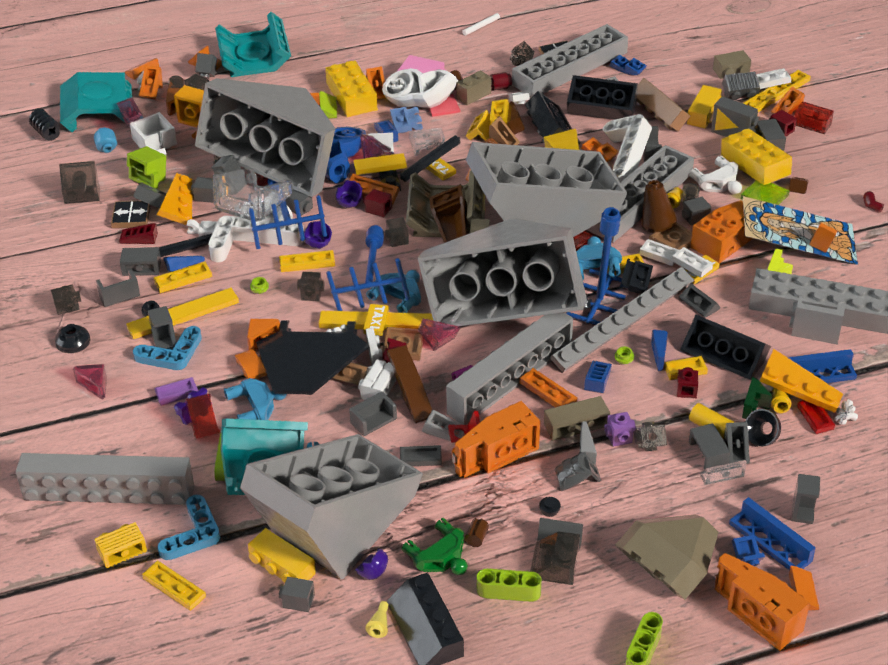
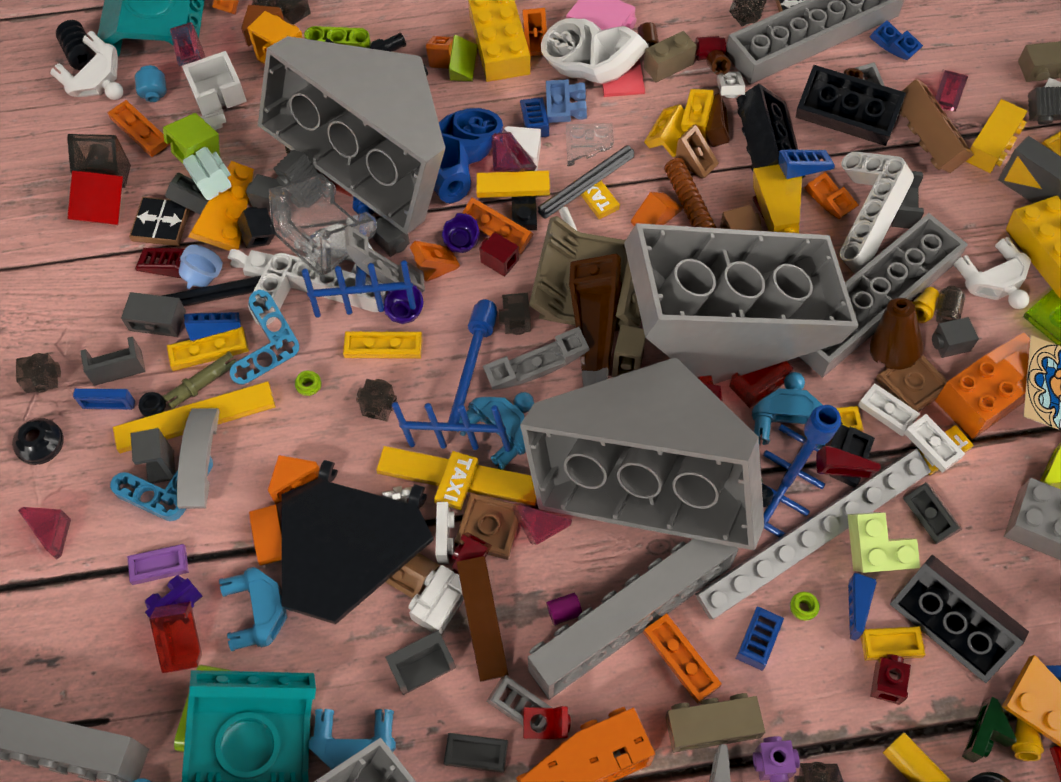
camera: 10 degrees right, 20 degrees up
(63, 140) = (96, 75): none -> white connector
(82, 203) = (95, 197): none -> red slope
(104, 166) = (138, 128): none -> orange plate
(116, 308) = (104, 398): none -> blue tile
(163, 177) = (208, 172): none -> light aqua brick
(166, 233) = (199, 266): none -> light blue piece
(177, 295) = (200, 380): none -> olive pin
(192, 330) = (195, 457): none -> light grey slope
(203, 206) = (256, 227): none -> black brick
(231, 264) = (275, 339): none -> dark azure beam
(285, 199) = (386, 270): none -> light grey slope
(333, 212) = (433, 259): none -> orange slope
(409, 261) = (537, 363): none -> light grey slope
(508, 86) = (718, 62): none -> reddish brown piece
(574, 127) = (804, 162): none -> blue slope
(629, 276) = (841, 463): none -> dark red slope
(666, 318) = (872, 548): none -> yellowish green brick
(669, 84) = (950, 89): none -> clear pink slope

